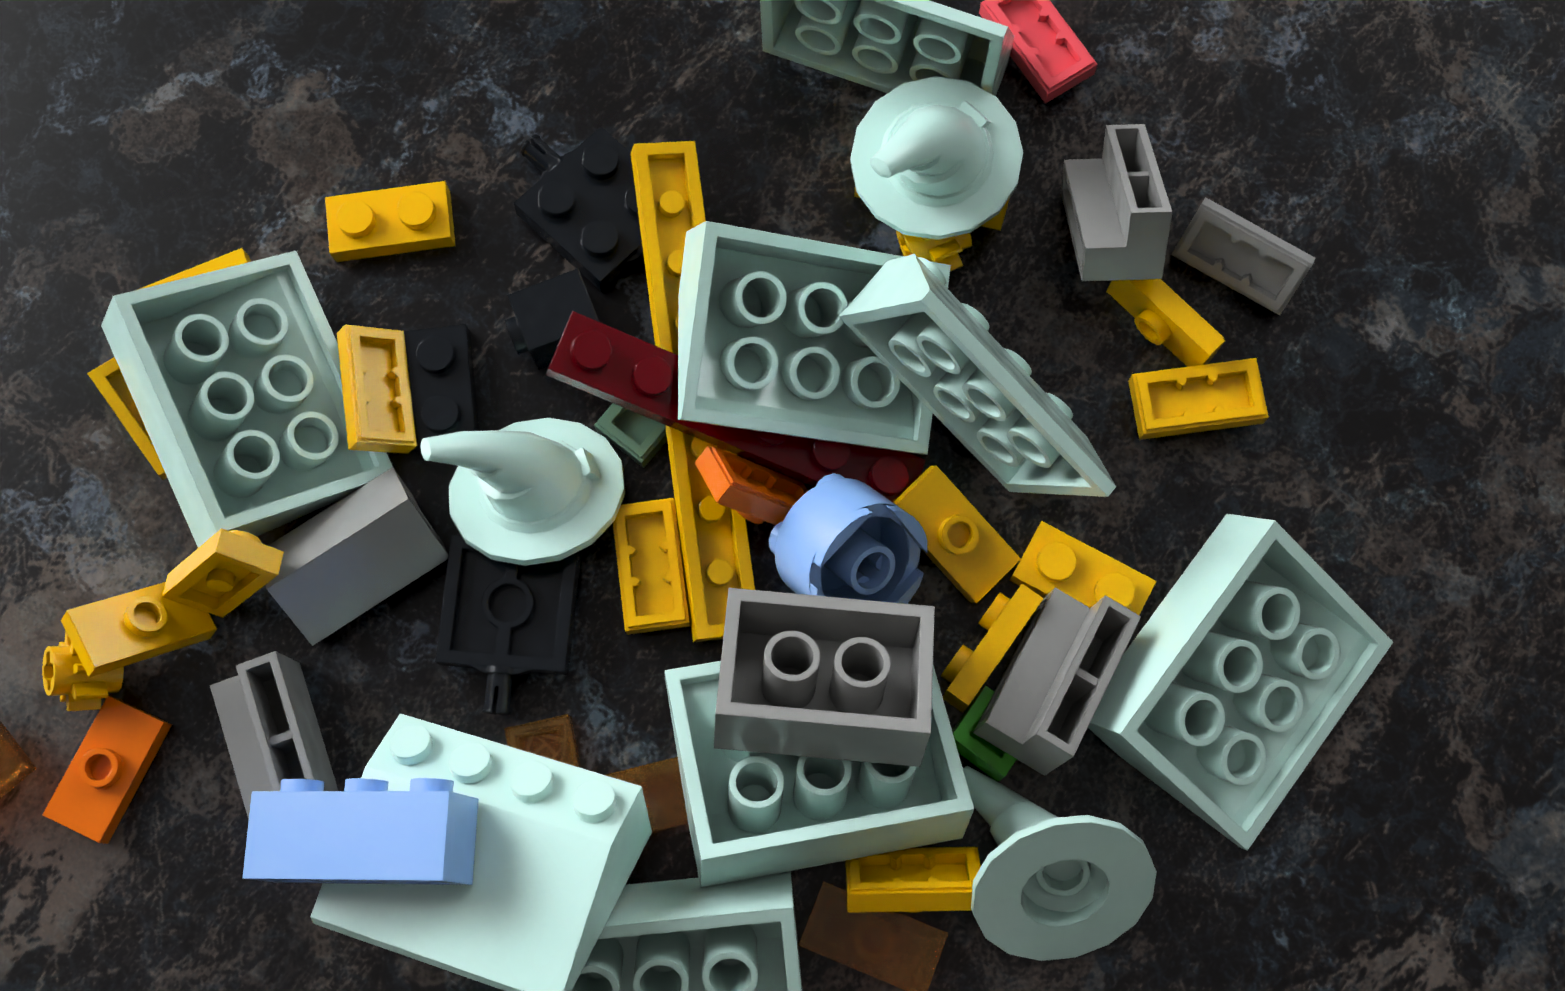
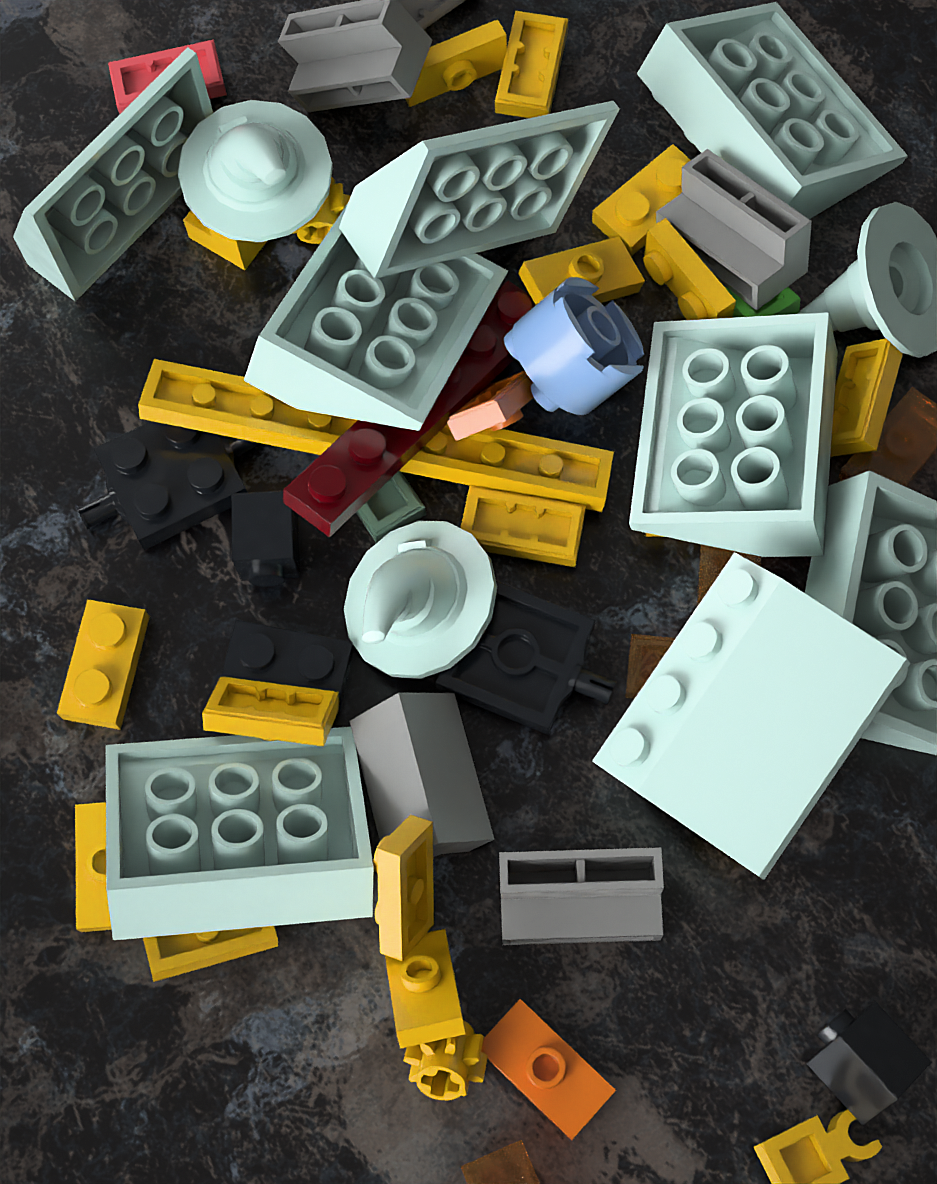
camera: 70 degrees left, 5 degrees down
(362, 833) = (706, 791): light blue brick -> none
(825, 677) = (686, 382): light grey brick -> none

